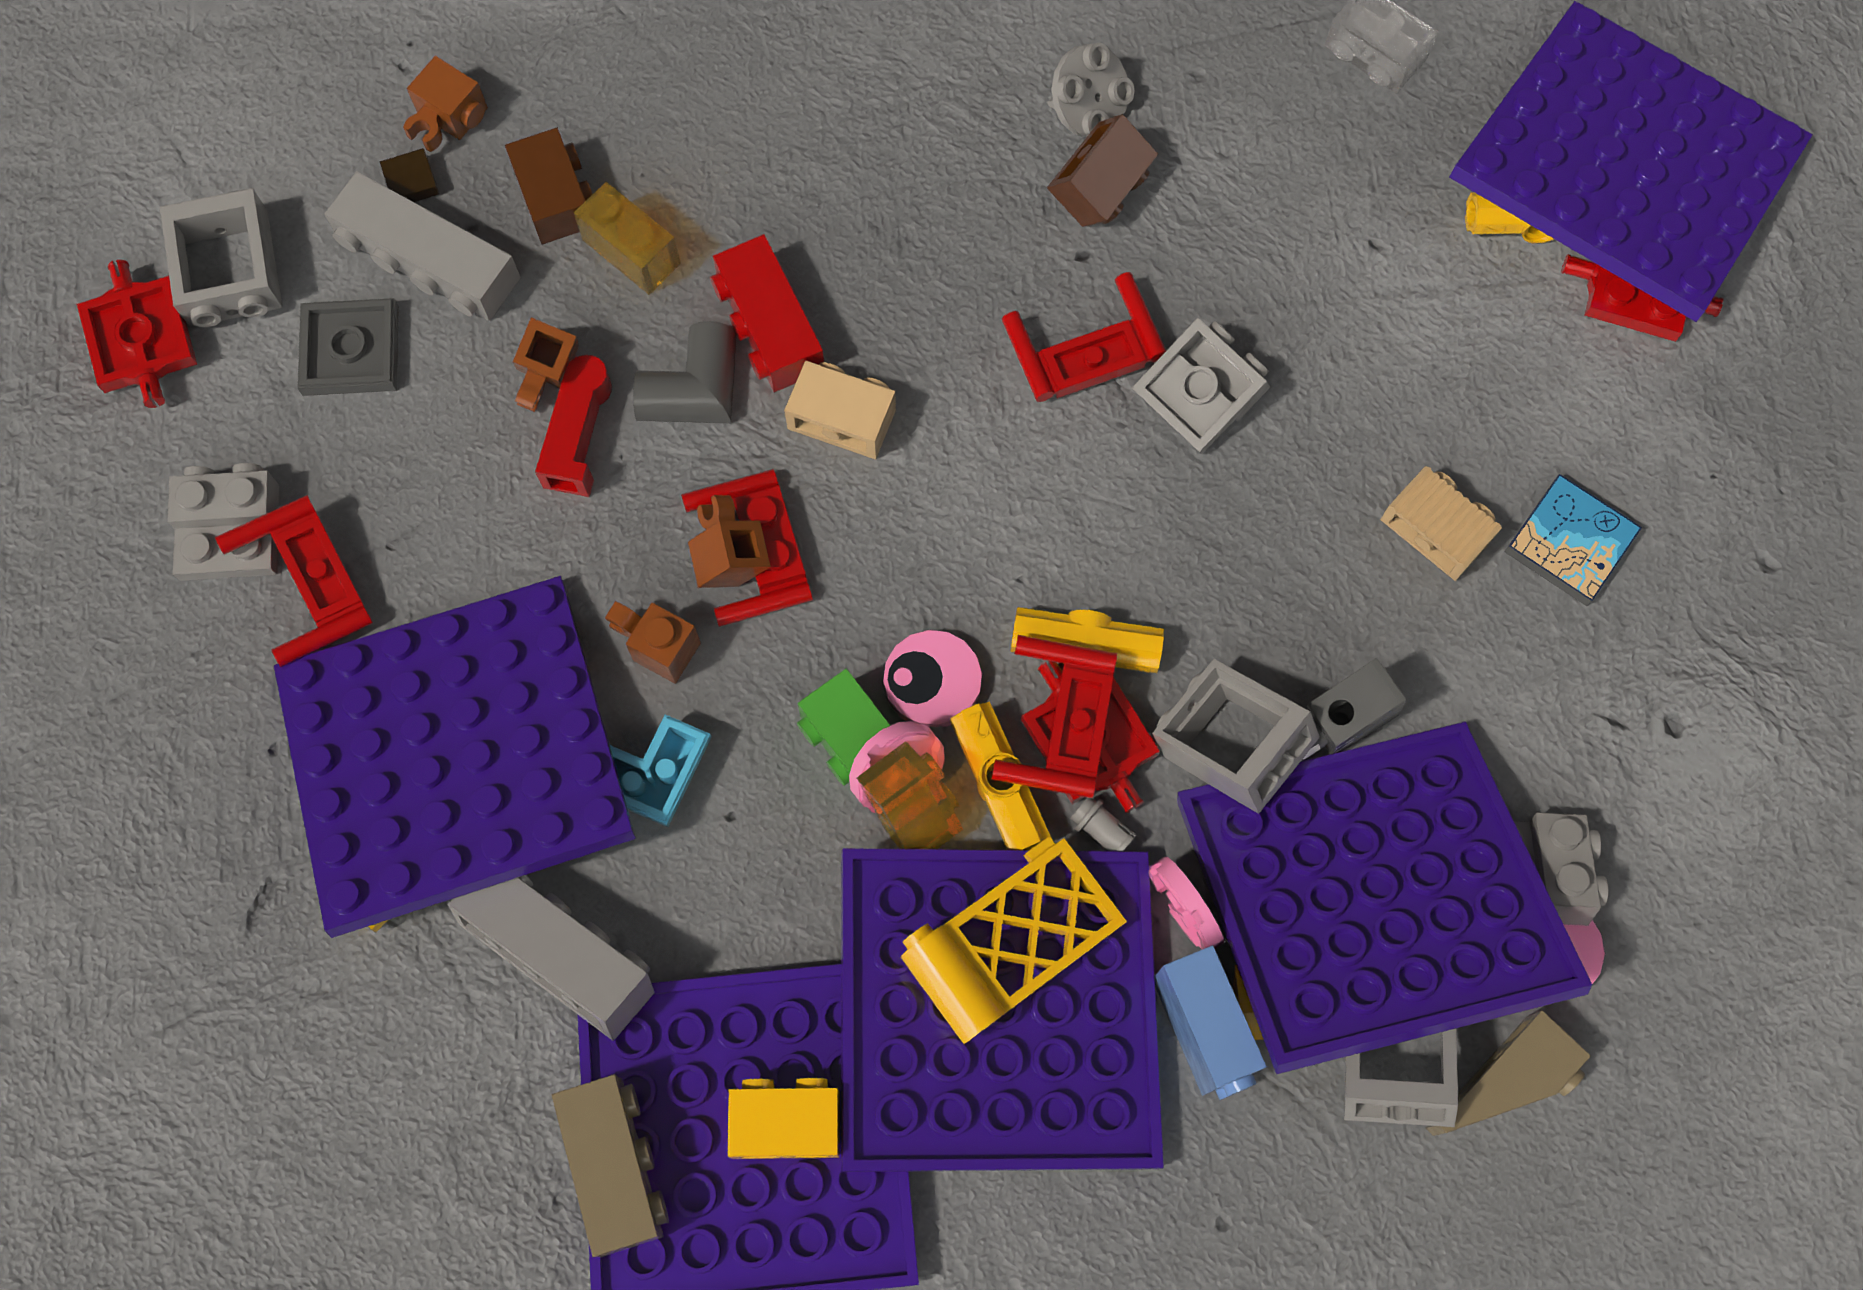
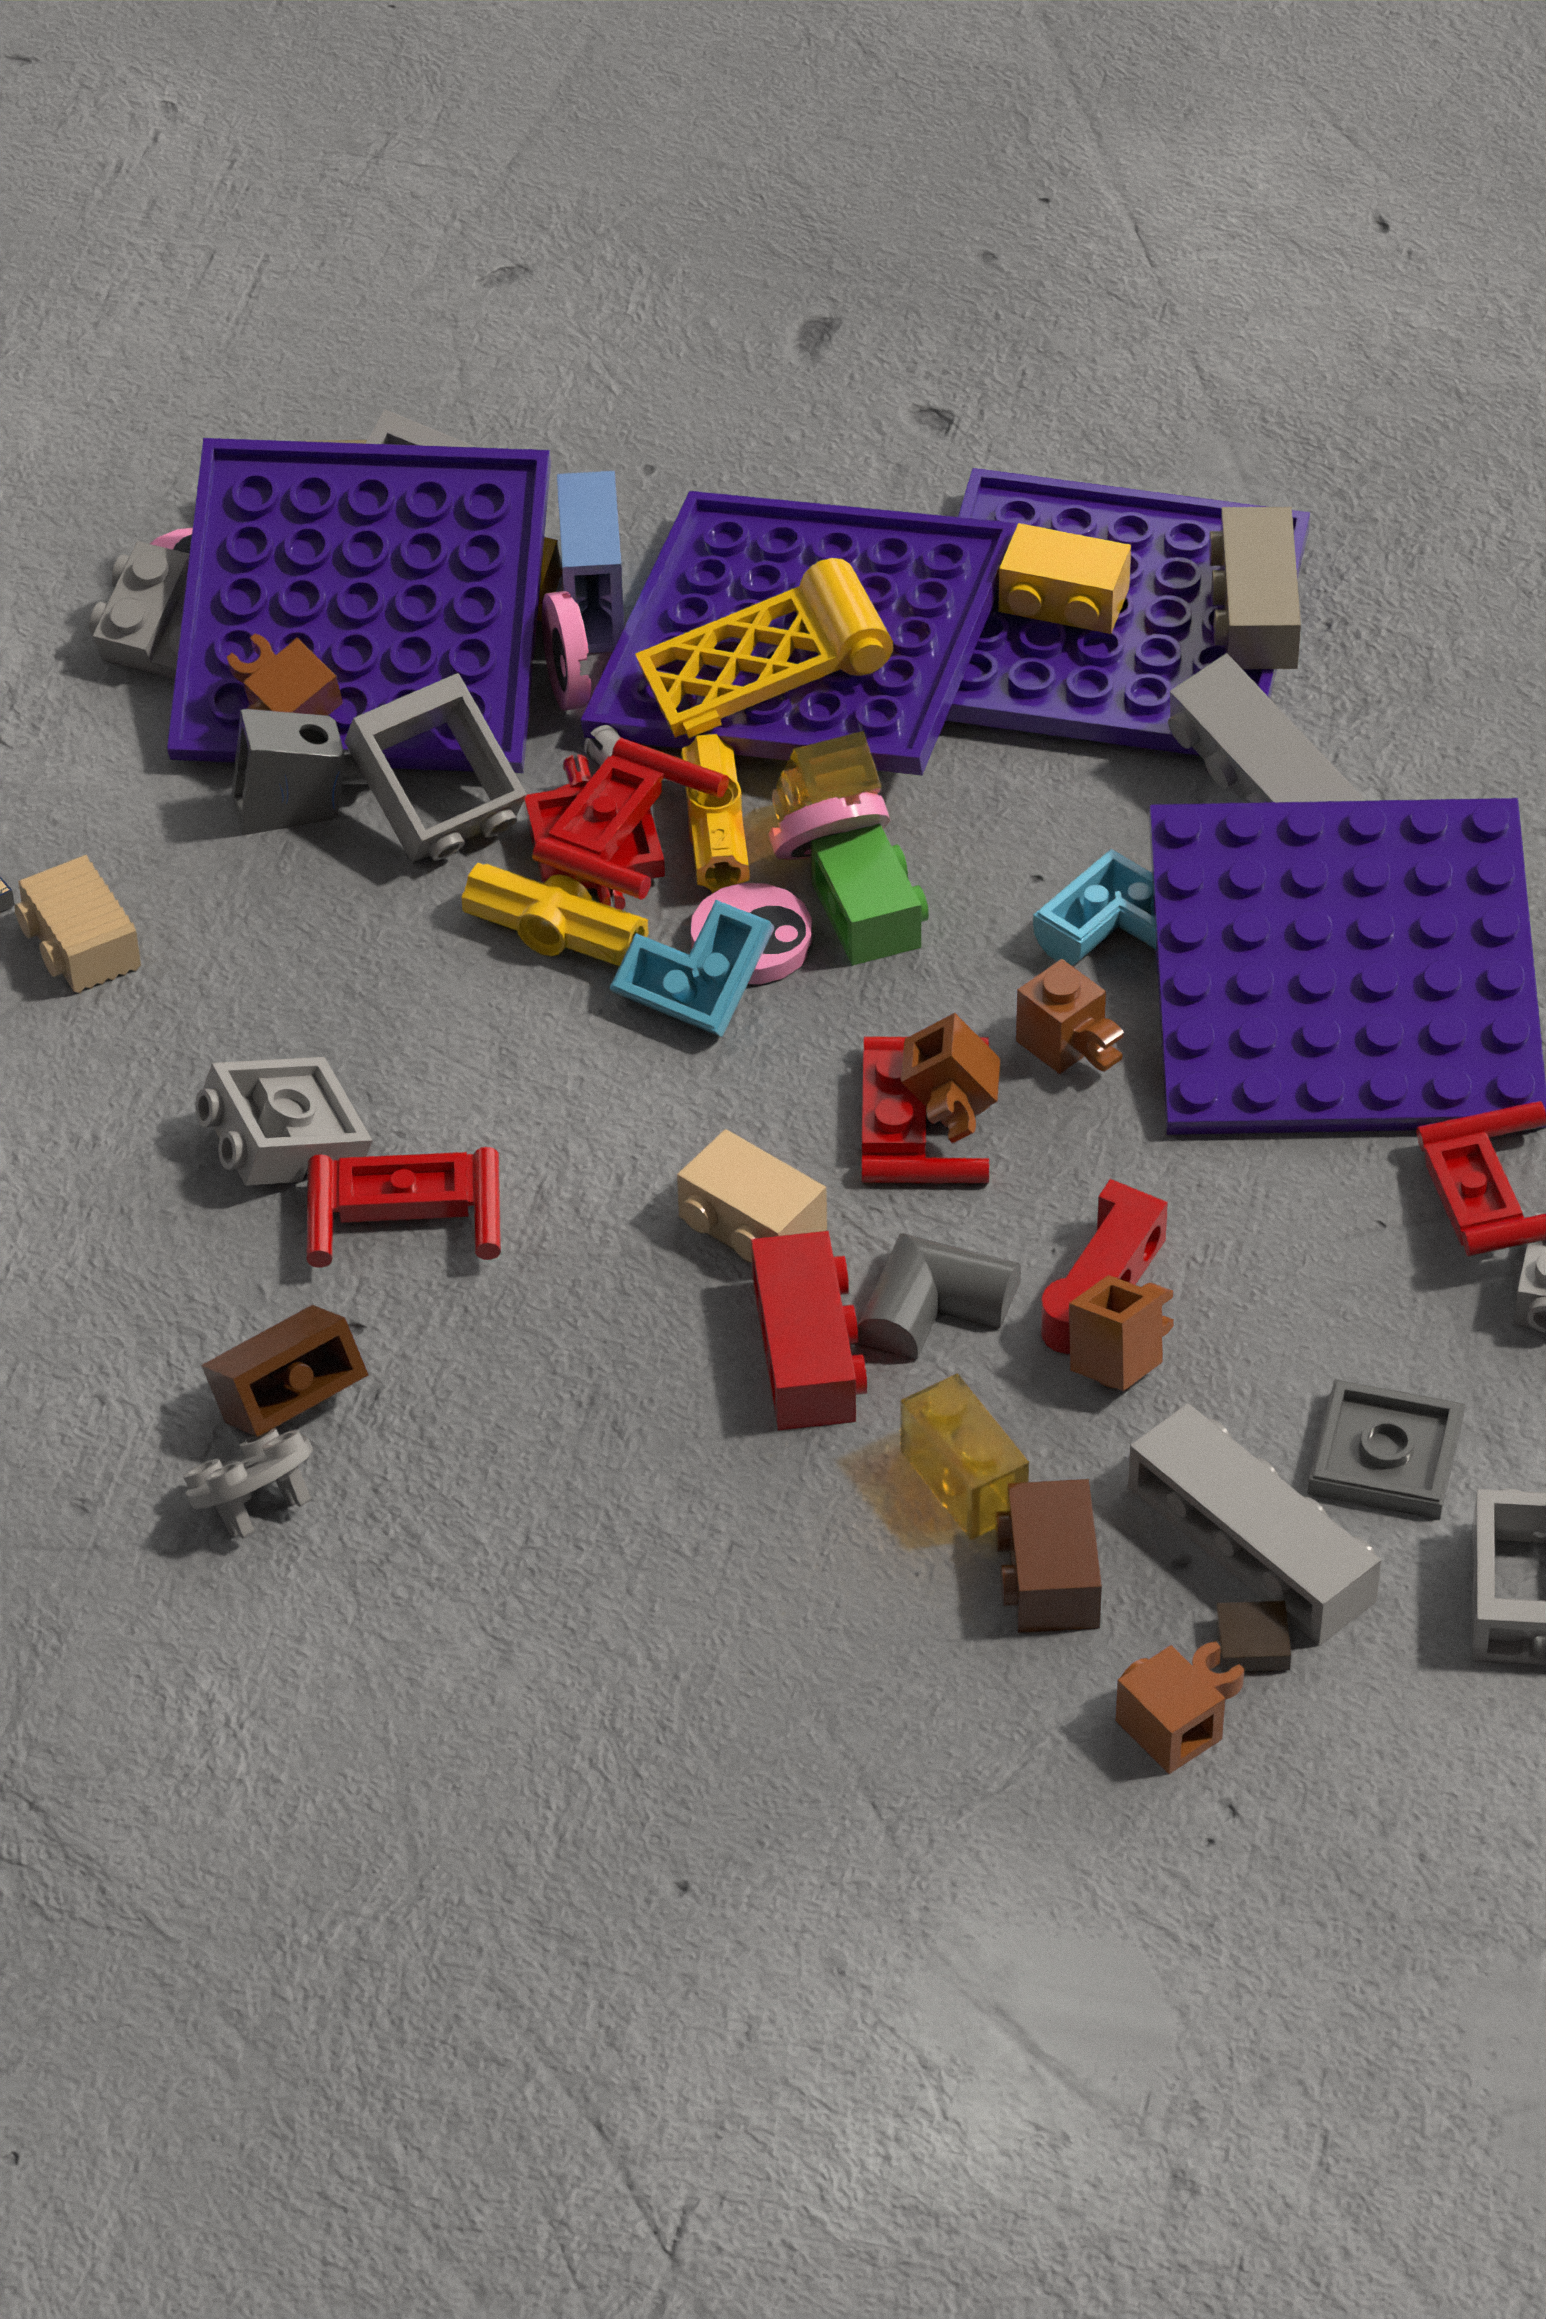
camera: 160 degrees left, 25 degrees down
(950, 593) = (700, 985): none -> medium azure brick
(1389, 769) = (287, 681): none -> dark orange brick

